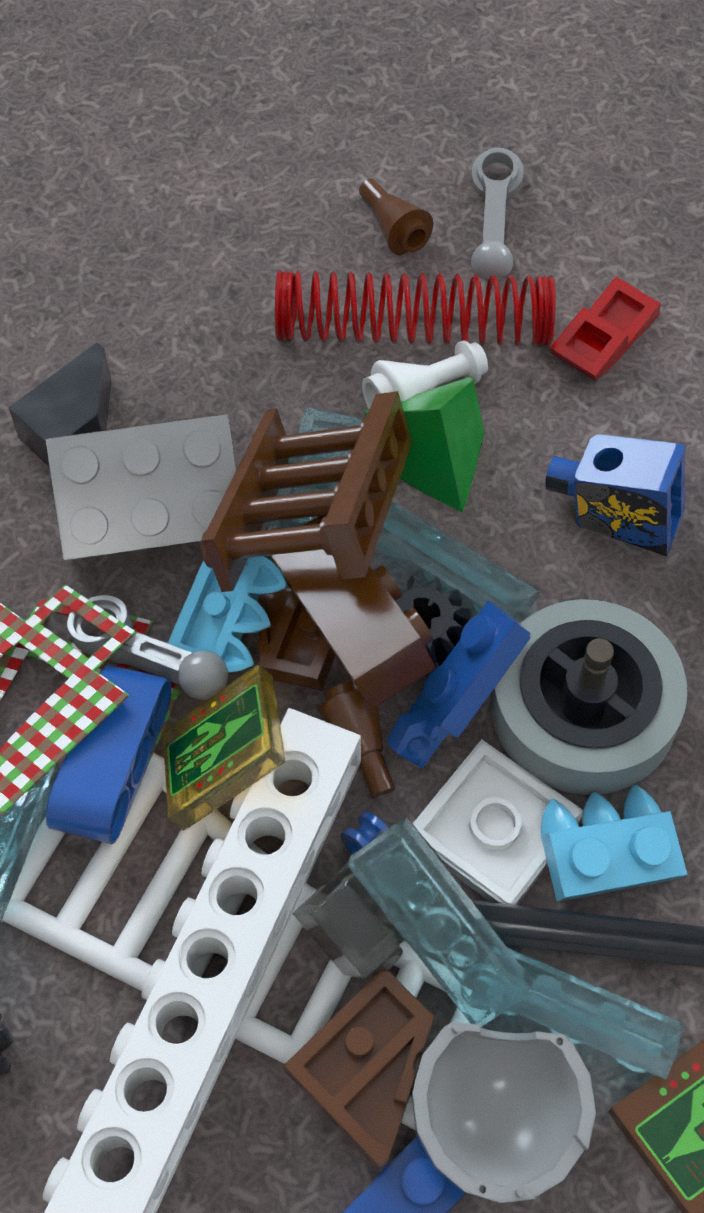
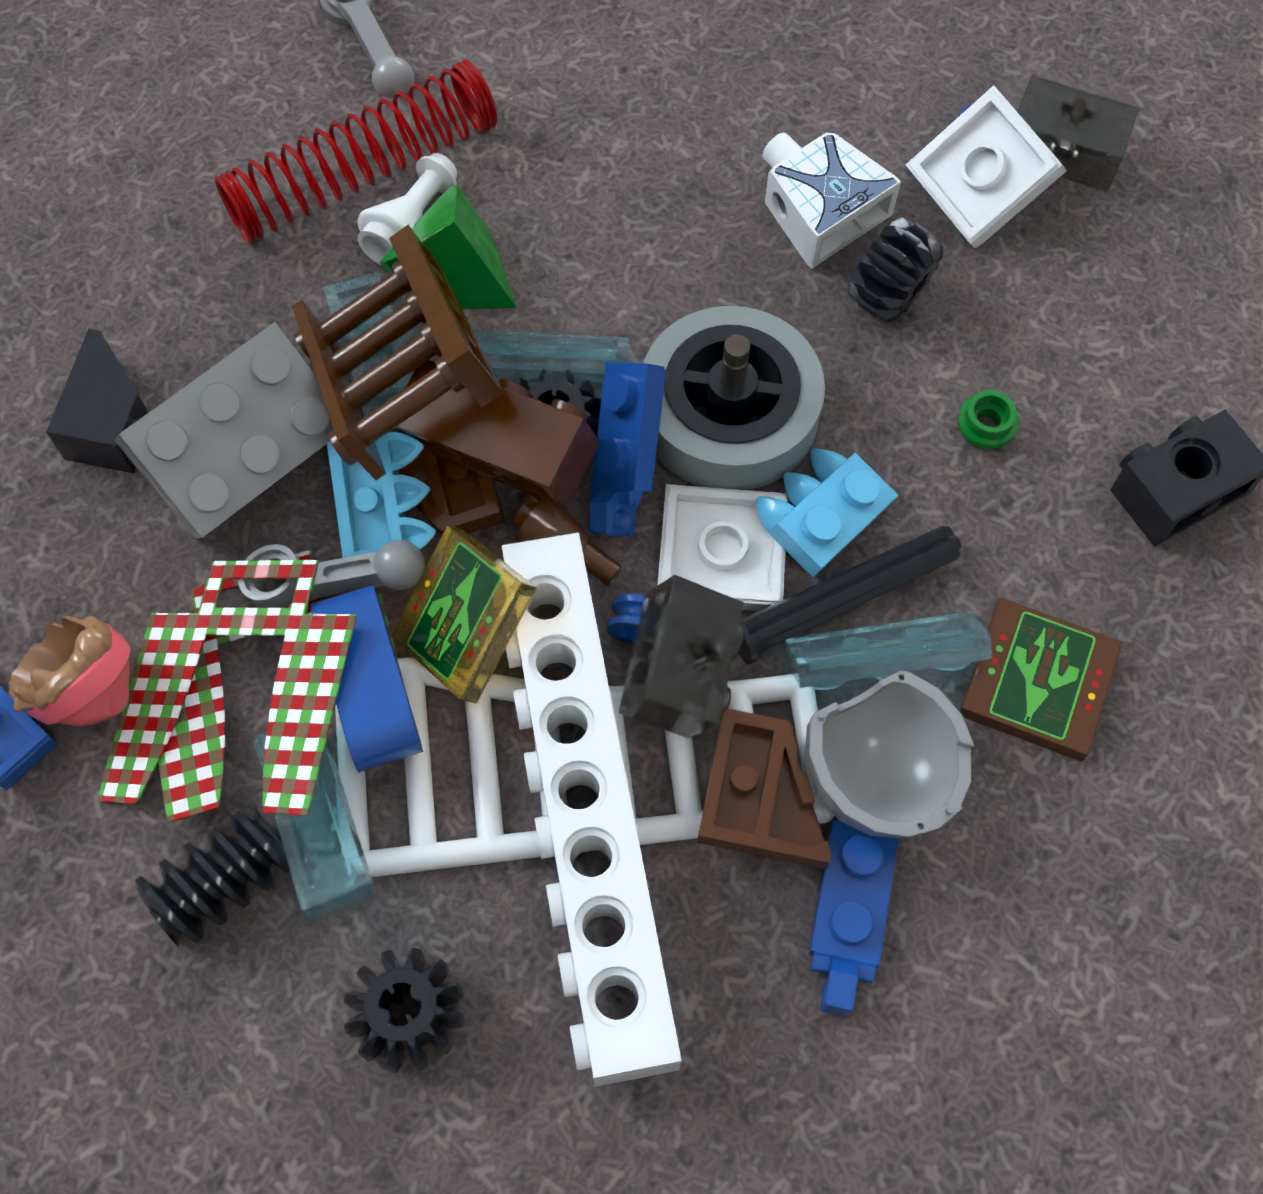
camera: 35 degrees left, 5 degrees up
(402, 223) = (291, 81): reddish brown cone -> none
(440, 923) = (752, 640): clear light blue plate -> none
(606, 330) = (533, 86): red slope -> none
(625, 489) = (646, 210): blue torso -> none

